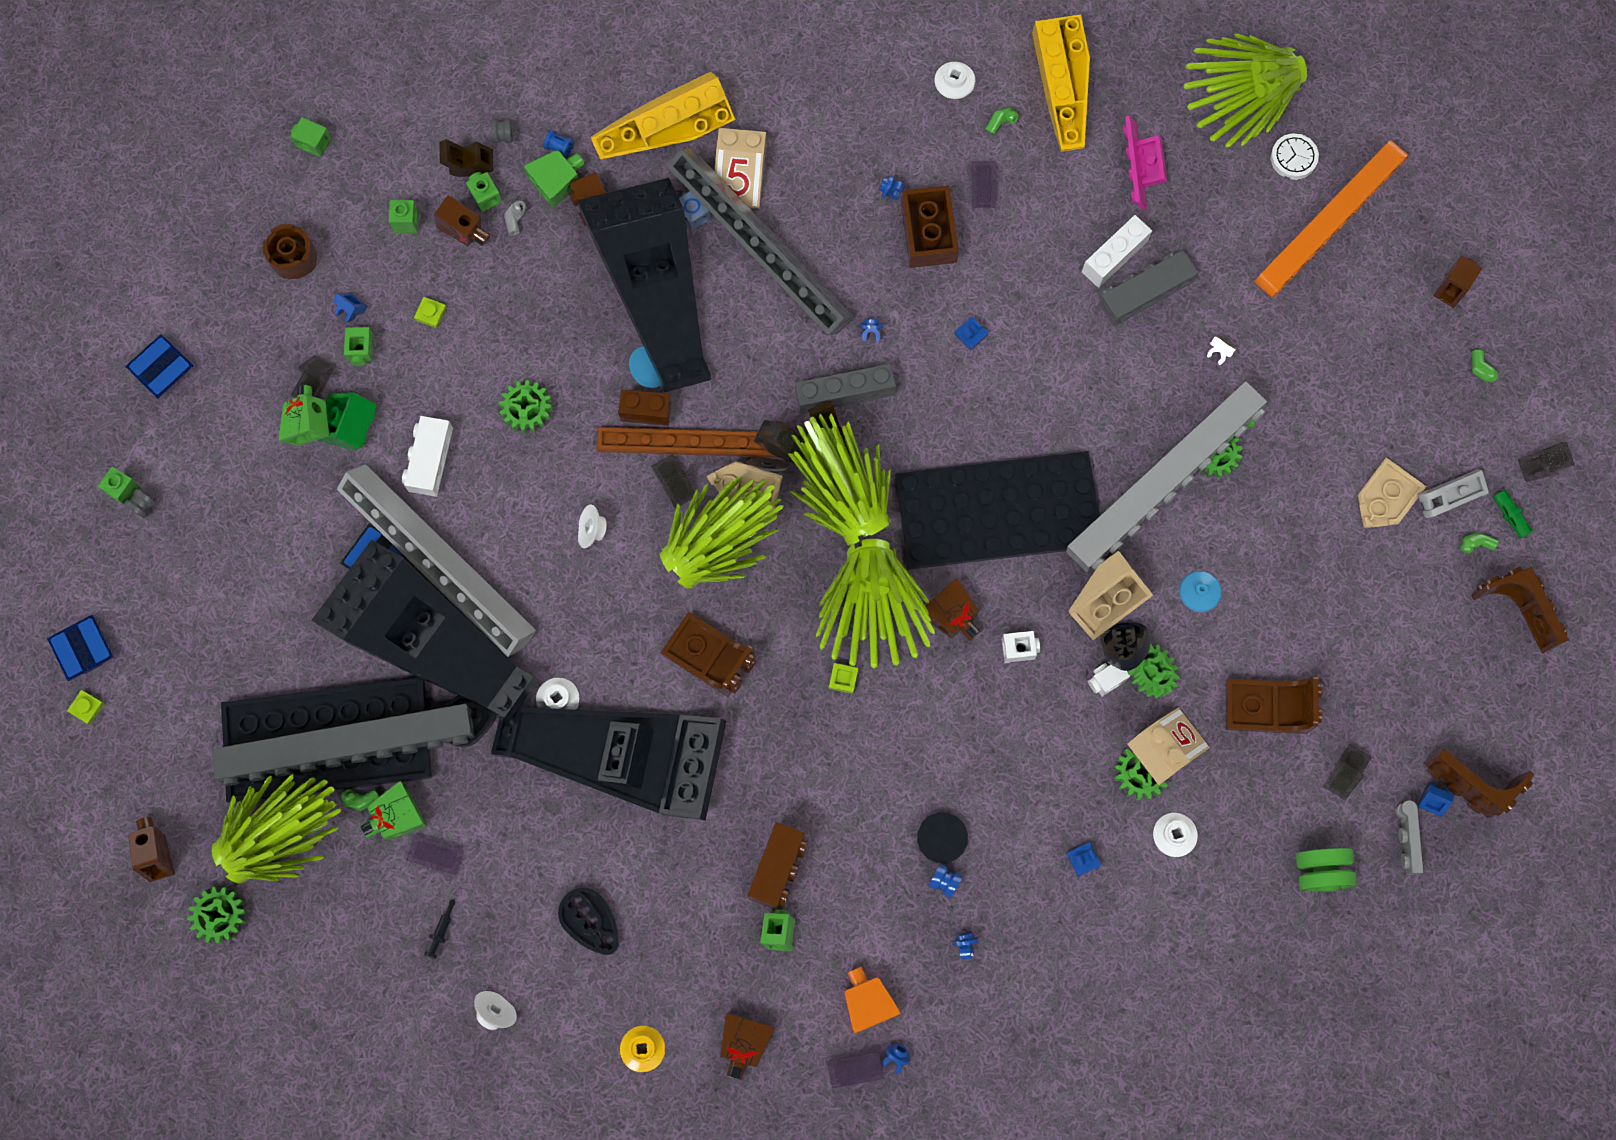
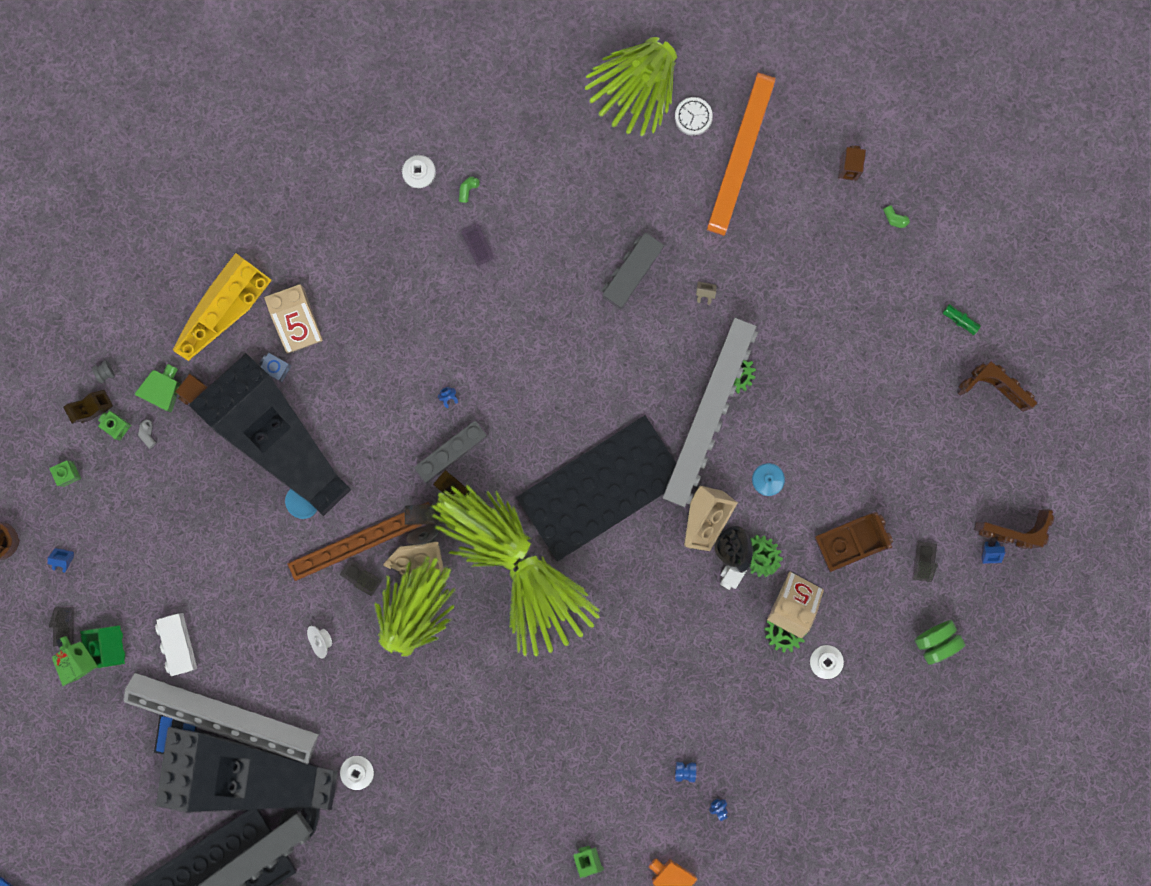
camera: 25 degrees left, 10 degrees up
(355, 338) = (76, 584): bright green brick -> none
(430, 312) = (122, 535): lime plate -> none
(460, 222) = (102, 459): reddish brown torso -> none
(524, 396) = (224, 565): bright green gear -> none
(558, 143) = (150, 361): blue bush -> none
(644, 407) = (314, 534): reddish brown brick -> none
(662, 766) = (452, 787): black wing -> none
(709, 655) = (448, 692): reddish brown bracket -> none
(760, 241) = (335, 370): dark grey brick -> none
(778, 866) = (567, 821): reddish brown brick -> none
(843, 678) = (549, 663): lime plate -> none
(891, 187) = (411, 280): blue plate -> none
(929, 226) = (454, 299): reddish brown brick -> none
(942, 837) = (669, 742): black tile -> none
(954, 611) = (604, 579): reddish brown torso -> none
(971, 333) = (521, 364): blue tile -> none
(1027, 639) = (654, 584): white brick -> none
(1065, 76) = (499, 133): yellow wedge -> none
(1083, 859) = (772, 710): blue tile -> none
(1116, 251) = (598, 253): white brick -> none
(1146, 162) = (587, 172): dark pink bracket -> none
(1388, 495) = (869, 346): tan tile -> none
(1410, 837) = (985, 588): light grey plate -> none
(1453, 493) = (914, 324): light grey plate -> none
(1478, 539) = (943, 351): bright green arm -> none
(1546, 462) = (969, 271): clear smoke slope -> none

